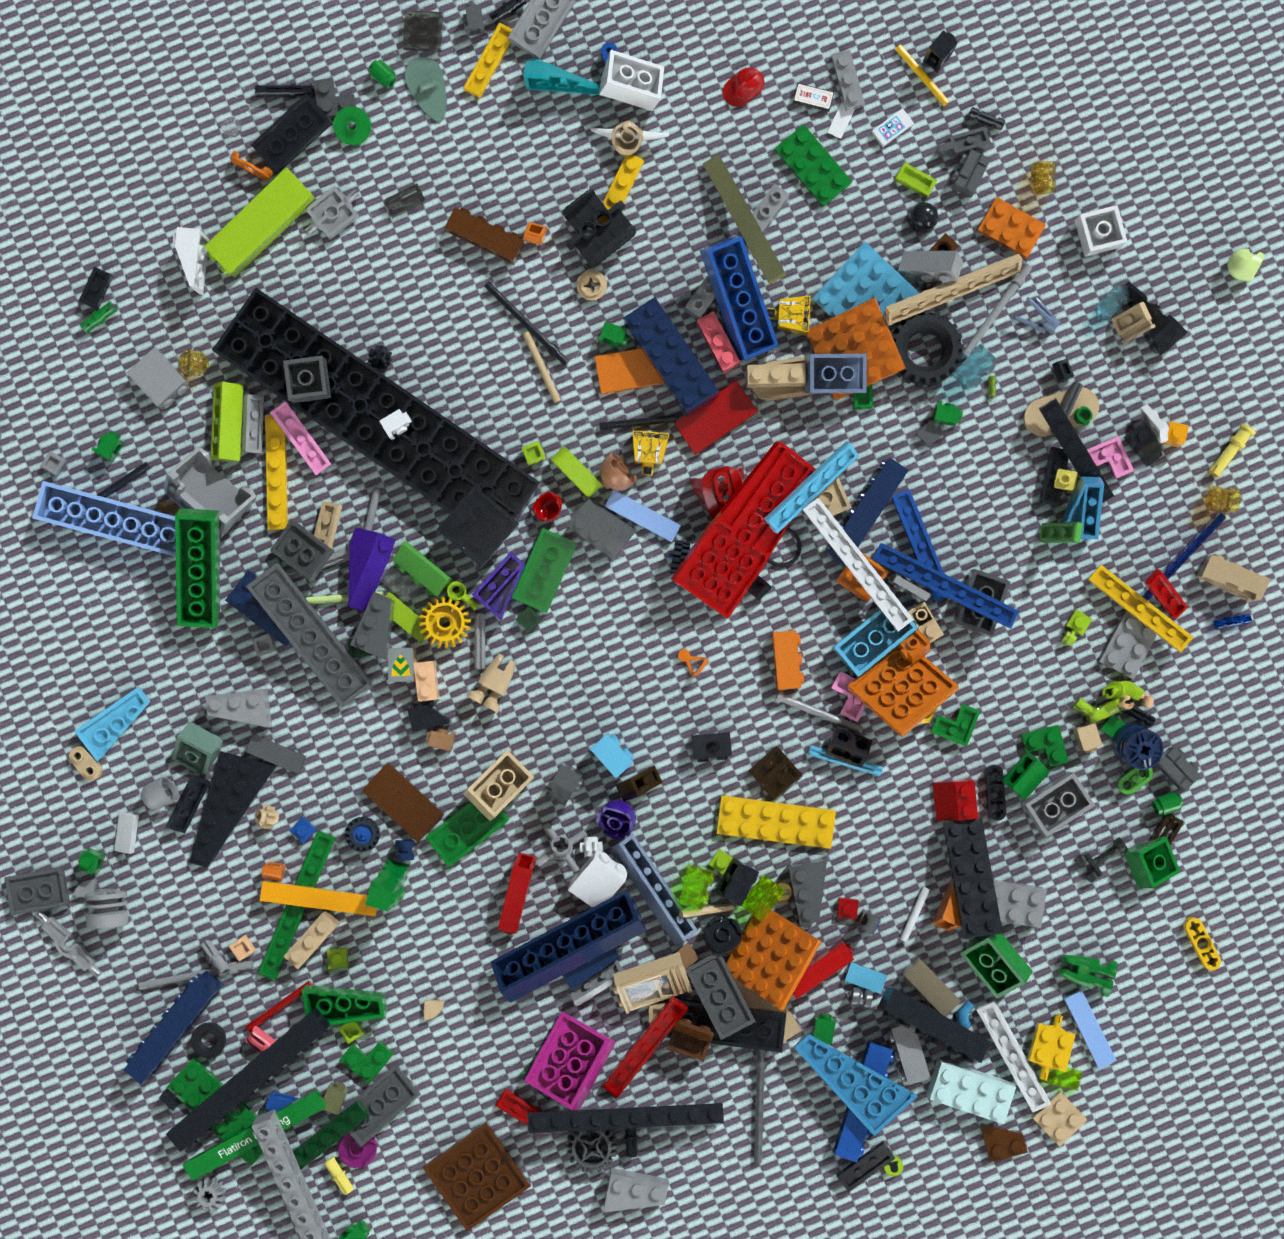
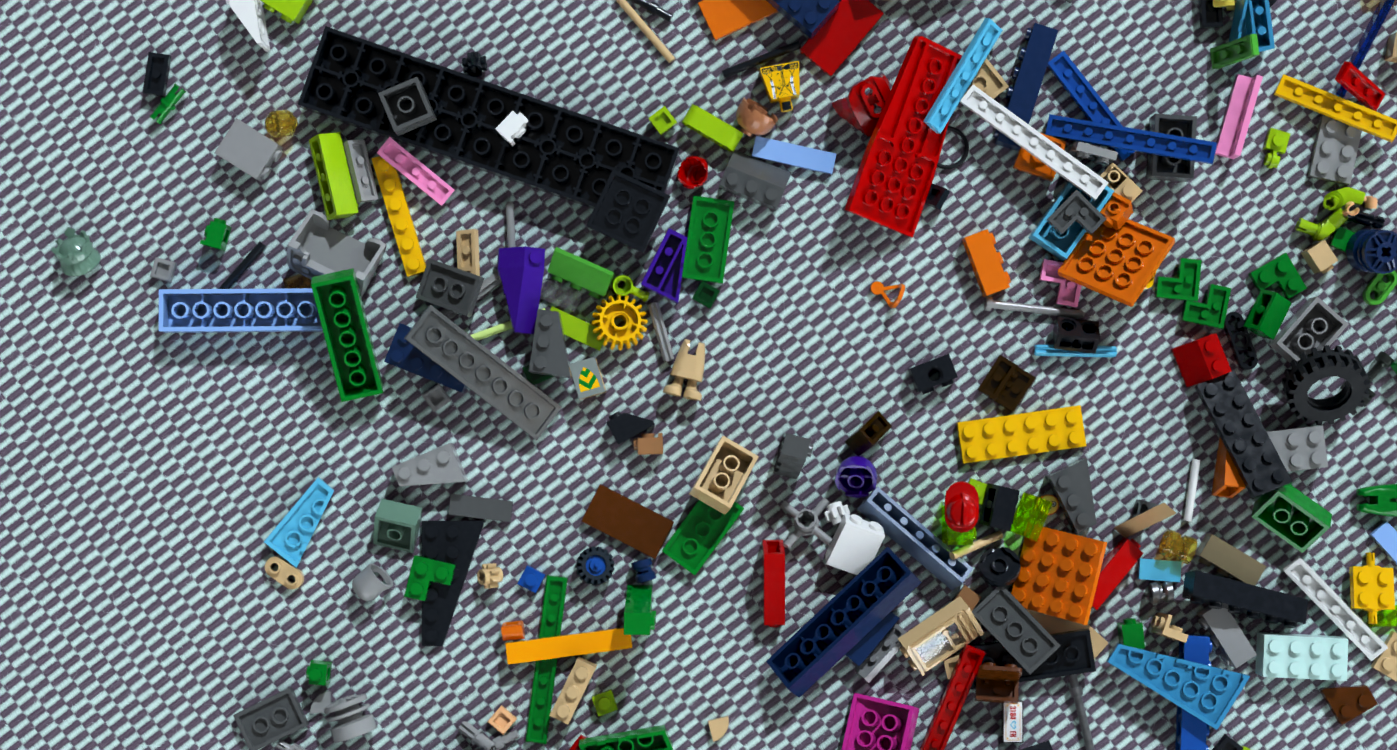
camera: 20 degrees left, 0 degrees up
(126, 832) = (347, 633): white slope -> none
(188, 803) = (399, 604): black plate -> none
(208, 797) = (424, 571): none -> green plate
(426, 681) = (617, 388): light nougat brick -> none
(612, 754) = (833, 411): medium azure brick -> none
(680, 551) = (844, 182): black wheel -> none
(696, 1077) = (1012, 722): none -> white tile
(701, 873) = (961, 507): none -> red piece
(847, 908) = (1120, 503): red plate -> none
(852, 1030) = (1161, 626): none -> tan bracket
(862, 930) = (1145, 520): none -> tan sticker
(879, 635) = (1077, 209): none -> dark grey plate
(889, 963) = (1181, 547): none -> clear yellow wheel
(962, 1014) = (1270, 578): dark azure arm -> none
(976, 760) = (1212, 312): none -> green plate
(1049, 590) = (1238, 116): none -> bright pink fence
(1061, 836) = (1319, 366): none -> black tyre

